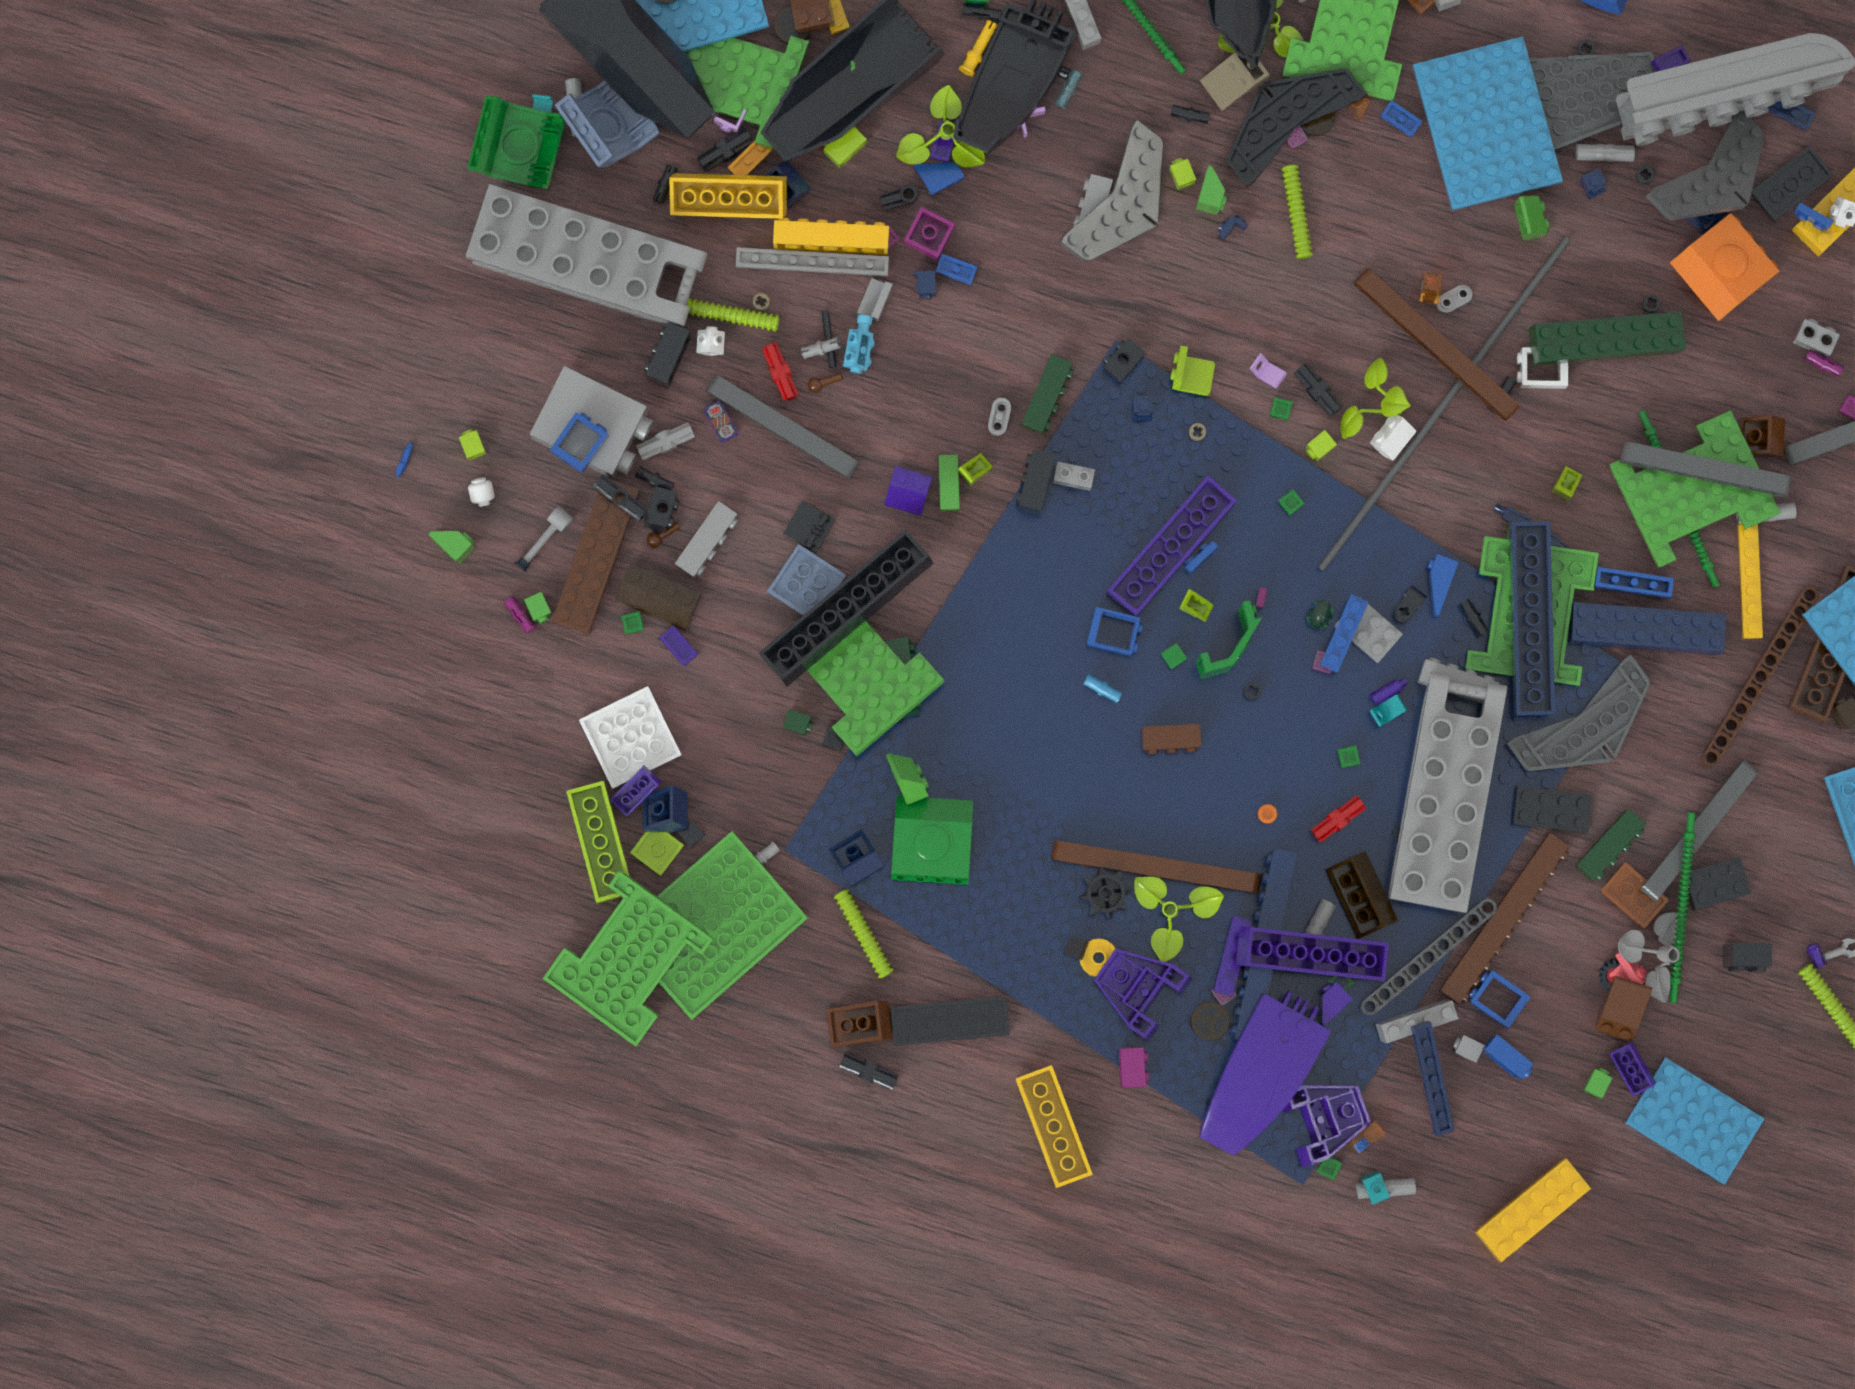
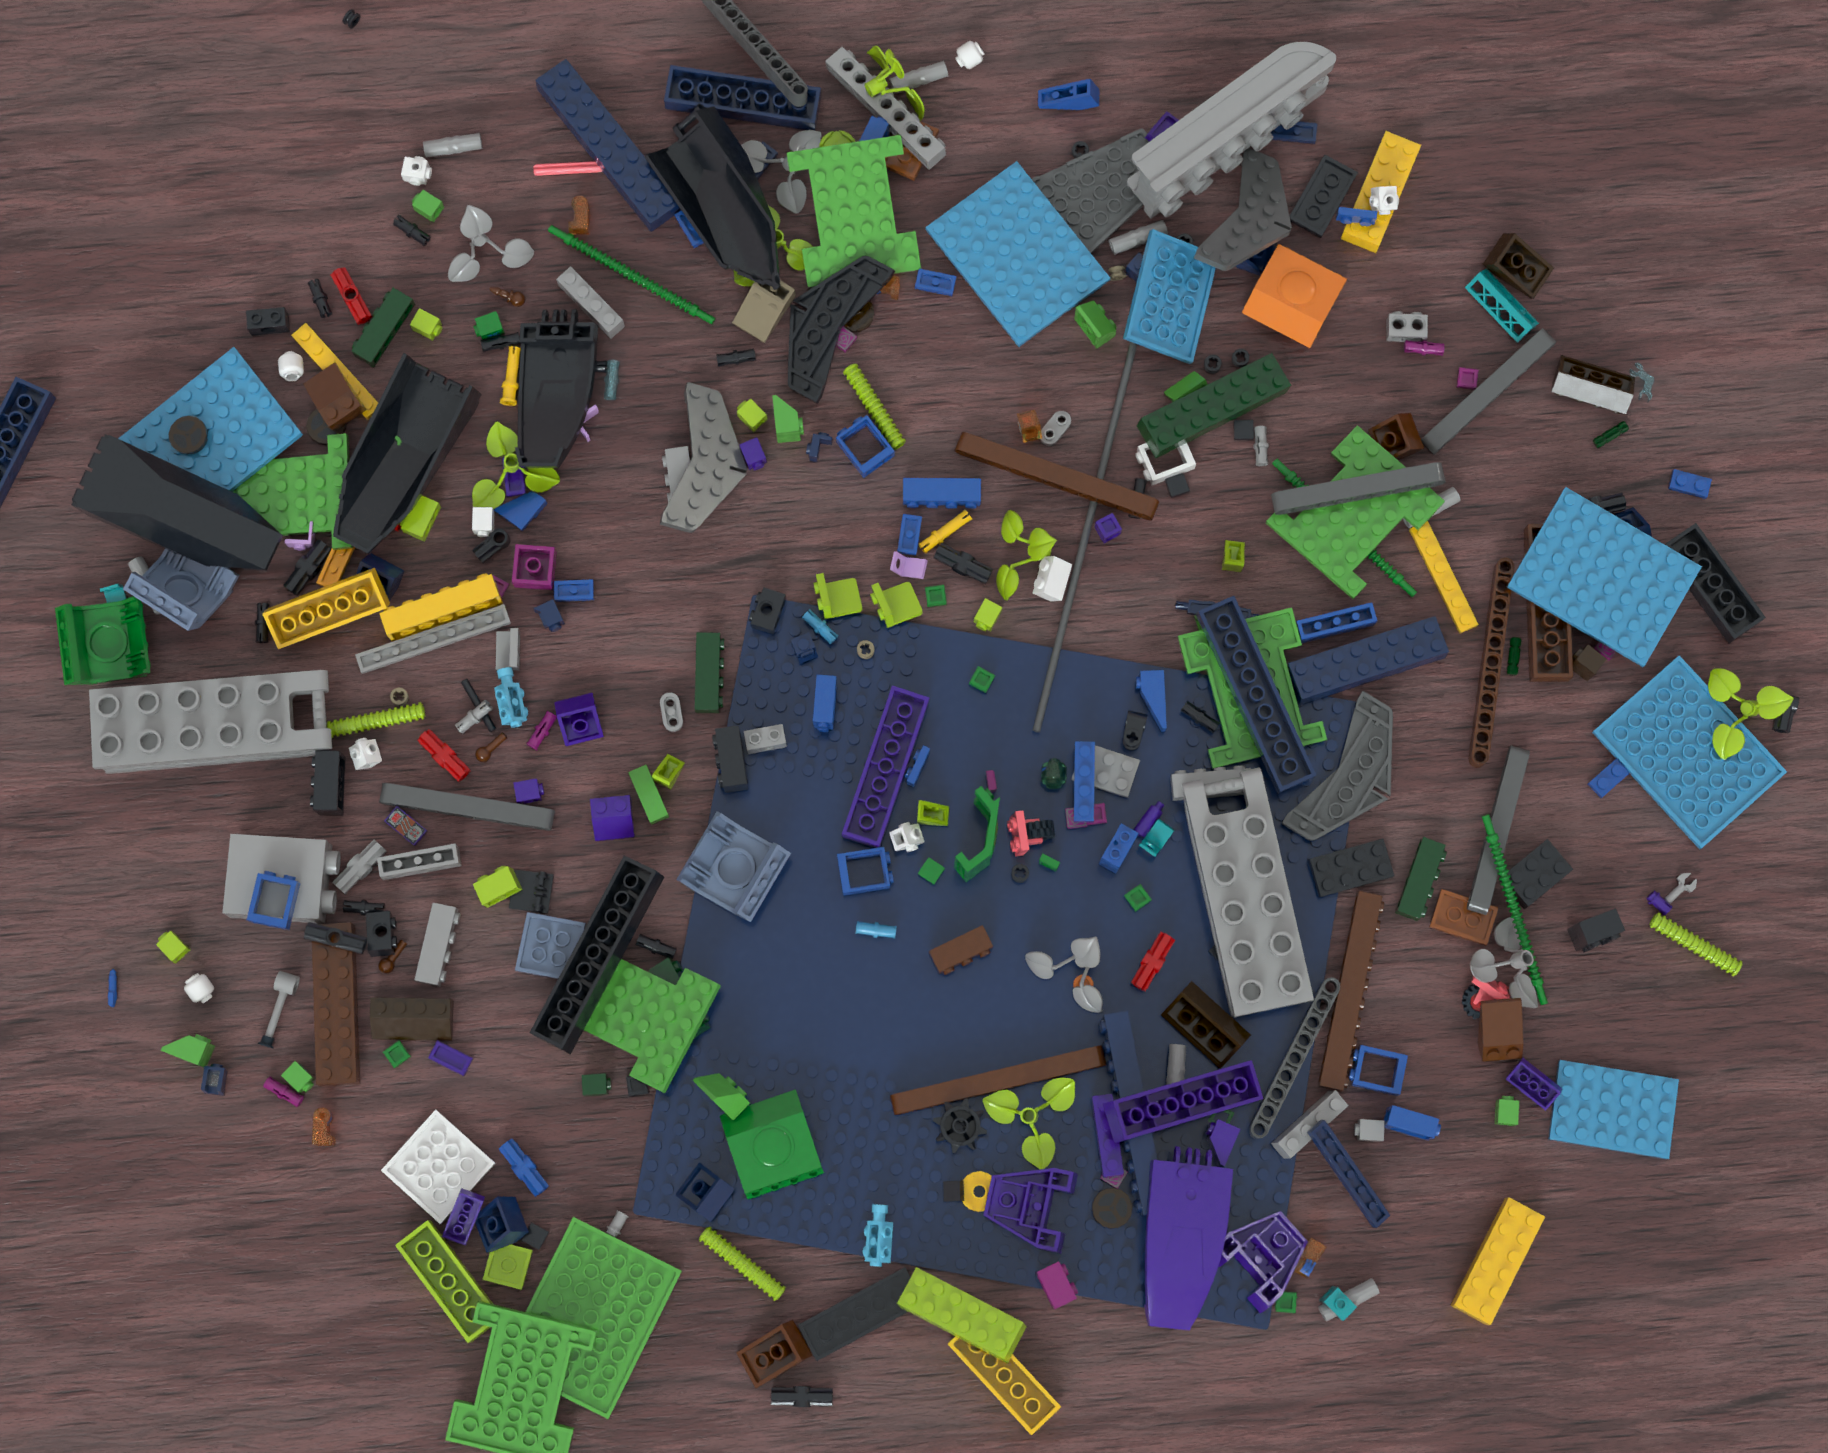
camera: 20 degrees left, 5 degrees down
(463, 579) = (214, 1079): none -> dark blue window
(540, 661) = (321, 1128): none -> clear orange leg
(705, 769) = (523, 1167): none -> blue piece
(720, 459) = (419, 861): none -> light grey brick
(781, 509) = (497, 886): none -> lime brick
(843, 435) = (528, 791): none -> dark purple brick
(866, 392) = (541, 730): none -> magenta pin
(899, 172) = (483, 521): none -> white brick
(900, 622) = (656, 946): none -> black pin
(913, 389) = (578, 719): none -> dark purple slope
(993, 960) = (878, 1237): none -> medium azure brick
(998, 580) = (733, 867): none -> sand blue panel
(1038, 1058) = (962, 1315): none -> lime brick
(1140, 466) = (824, 702): none -> blue window
(1164, 617) = (907, 837): none -> white brick
(1165, 394) = (820, 626): none -> dark azure pin
(1169, 210) = (753, 454): none -> dark purple brick
(1242, 401) = (896, 603): none -> lime bracket
(1274, 658) = (1028, 832): none -> coral plate
(1279, 263) = (875, 462): none -> blue window
(1280, 343) = (909, 534): none -> blue plate
(1281, 789) = (1086, 955): none -> light grey plant
(1282, 692) = (1049, 862): none -> green tile
(1313, 353) = (938, 536): none -> yellow pin
(1326, 316) = (942, 492): none -> blue brick
(1346, 668) = (1099, 814): none -> magenta tile
(1349, 706) = (1118, 848): none -> blue window
(1463, 411) = (1108, 528): none -> dark purple brick
(1543, 397) = (1177, 485): none -> black tile
(1571, 178) = (1117, 273): none -> dark tan bush
(1589, 310) = (1185, 386): none -> bright green panel
(1608, 222) = (1169, 298): none -> dark azure plate
(1625, 371) = (1243, 430): none -> black tile
(1627, 302) = (1218, 365): none -> black bush
(1635, 392) = (1261, 446): none -> light grey pin
(1782, 680) = (1514, 656): none -> dark green axle
(1820, 825) = (1608, 778): none -> blue plate

